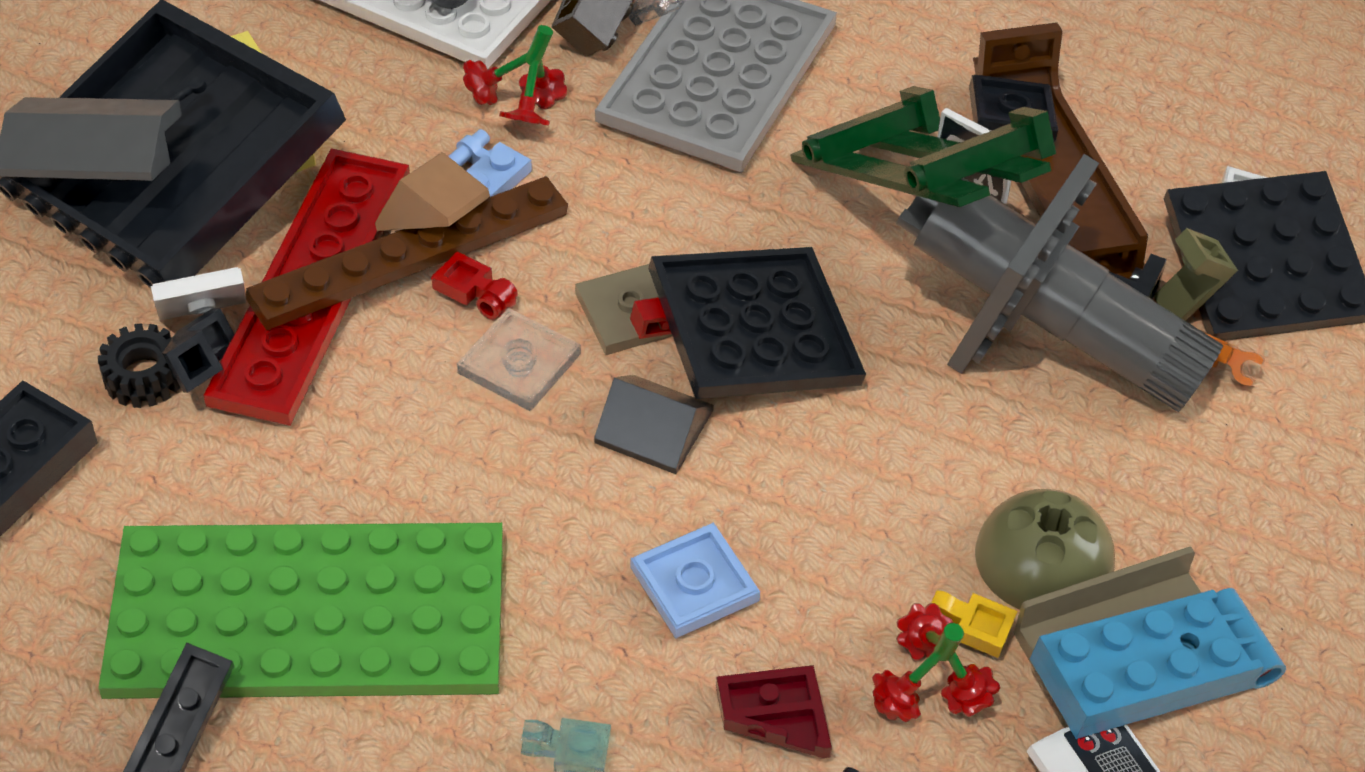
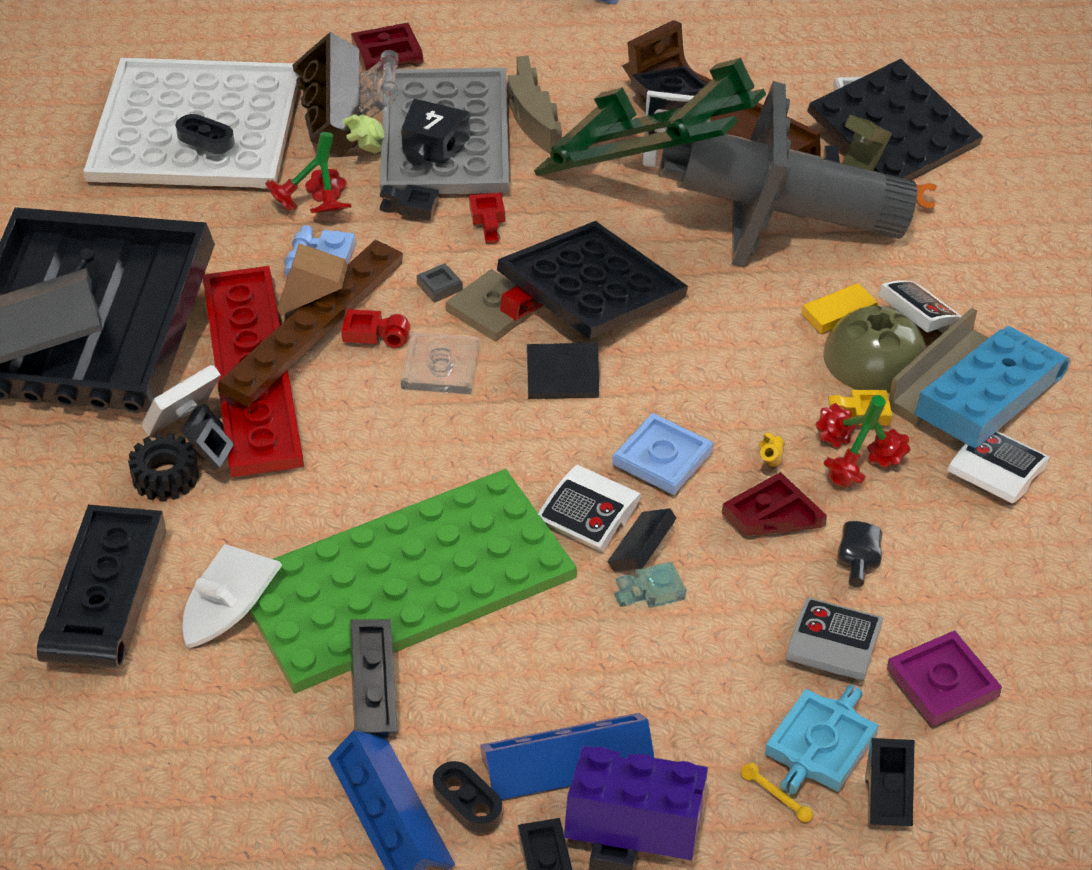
camera: 25 degrees left, 5 degrees down
(100, 546) = (225, 593): none -> white shield
(563, 612) = (588, 507): none -> slope
(588, 256) = (439, 282): none -> dark grey tile
(594, 682) = (642, 540): none -> black tile
(618, 36) = (366, 131): none -> yellowish green plate
(621, 145) = (411, 202): none -> black plate
(688, 67) = (433, 132): none -> black torso
(696, 186) = (489, 211): none -> red plate
(833, 629) = (771, 449): none -> yellow arm
(838, 67) = (532, 107): none -> dark tan slope
(1039, 470) = (828, 310): none -> yellow tile
(1136, 513) = (919, 305): none -> slope

